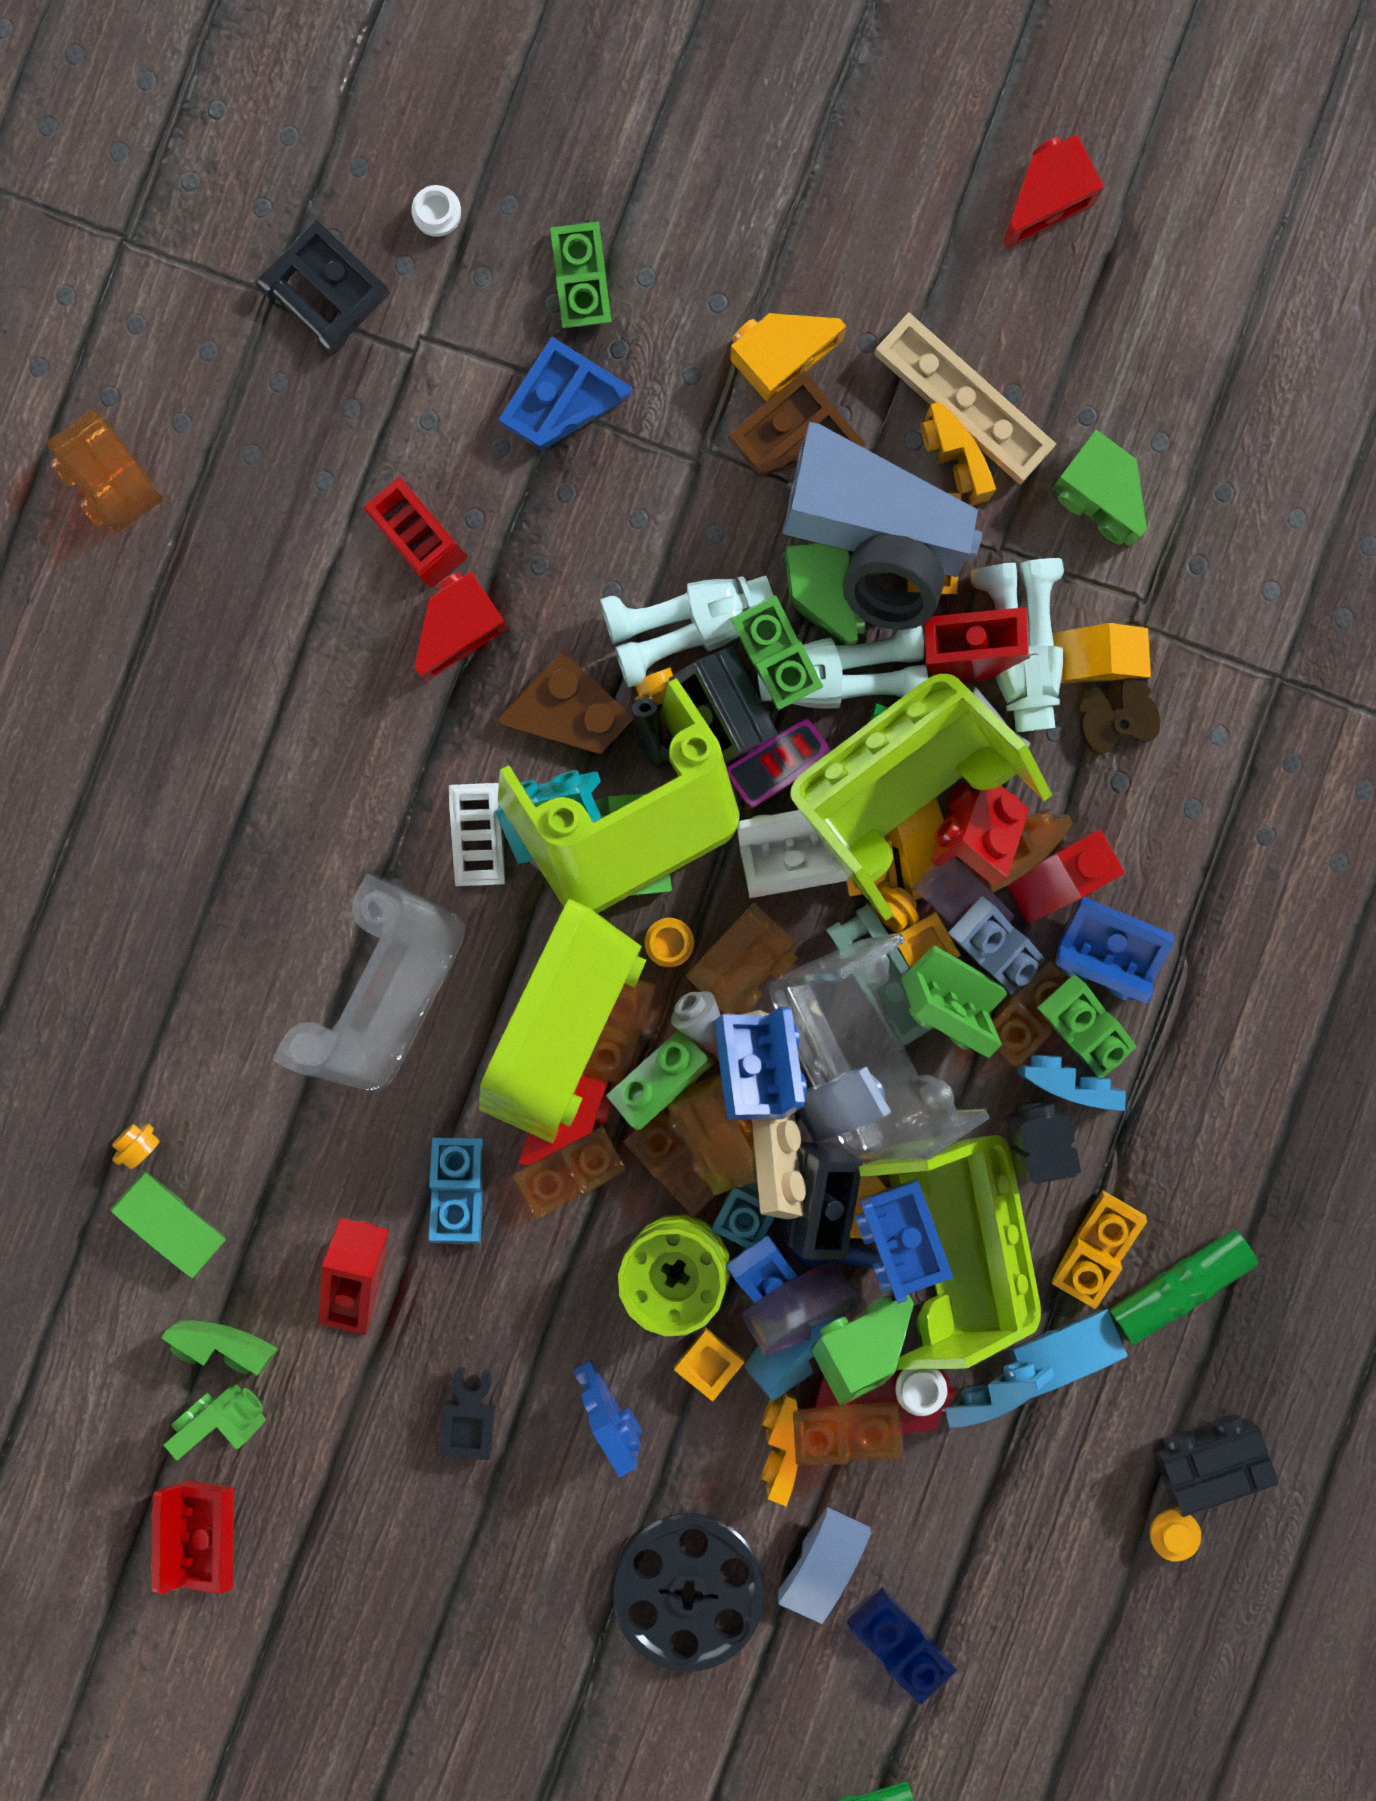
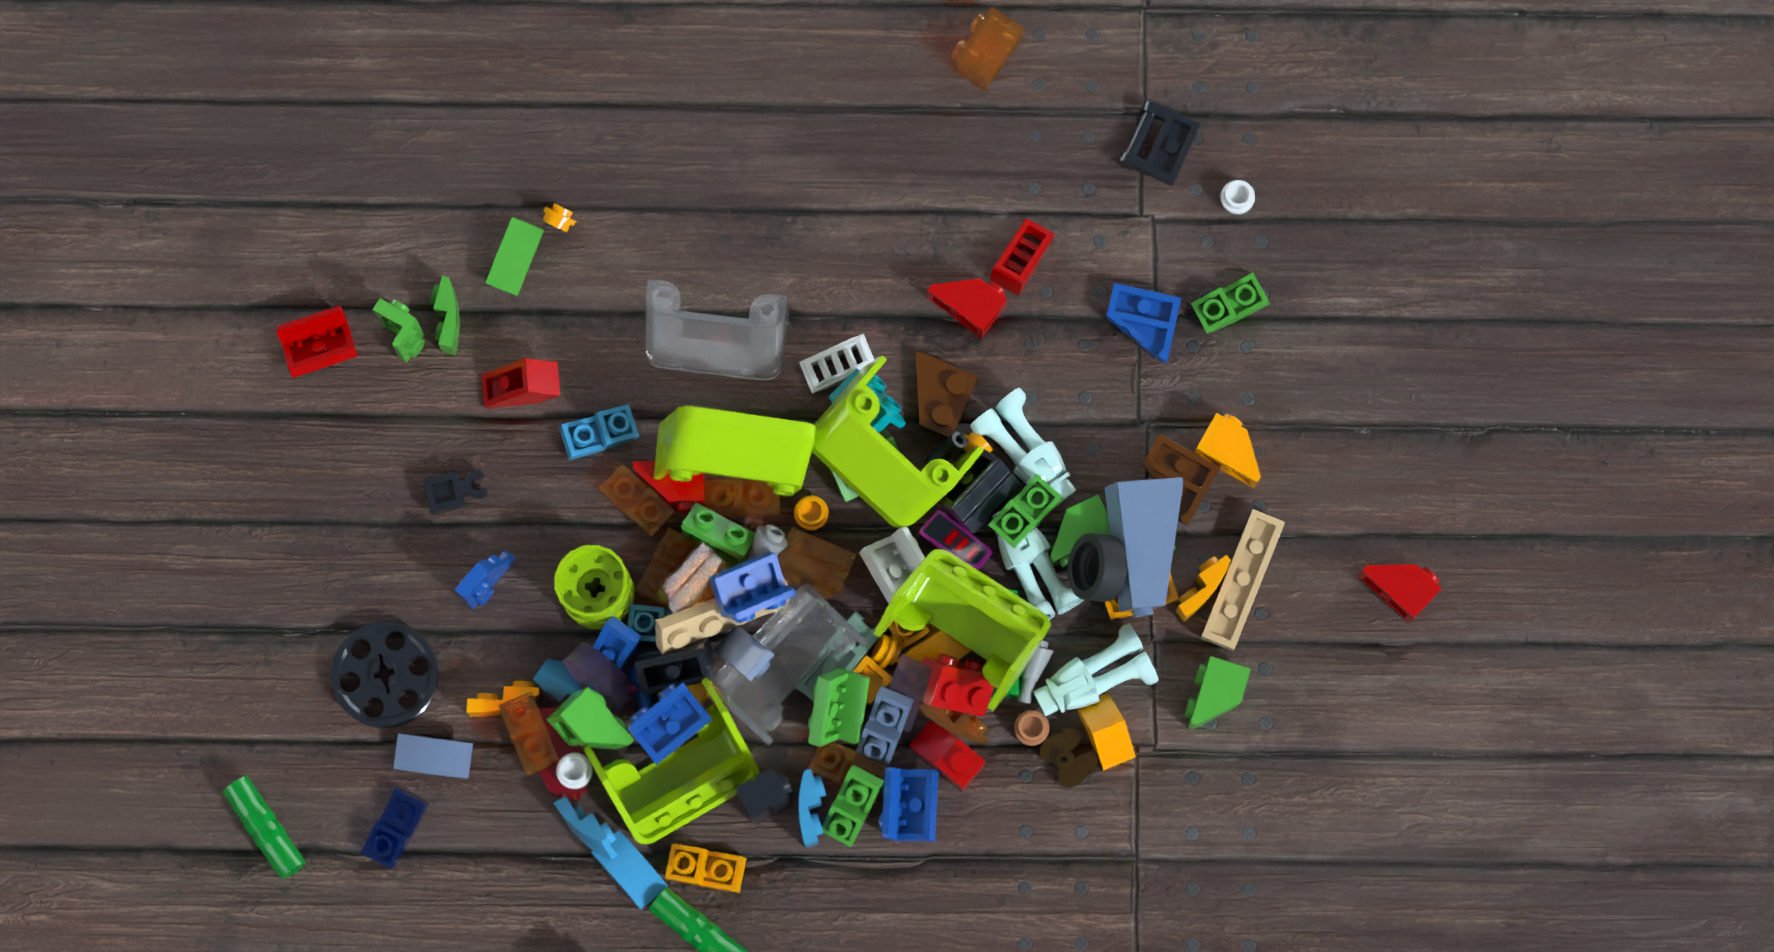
camera: 65 degrees right, 10 degrees down
(709, 1364) = (541, 634): light orange plate -> none
(977, 643) = (1077, 636): red slope -> none
(1063, 751) = (1031, 728): none -> nougat plate

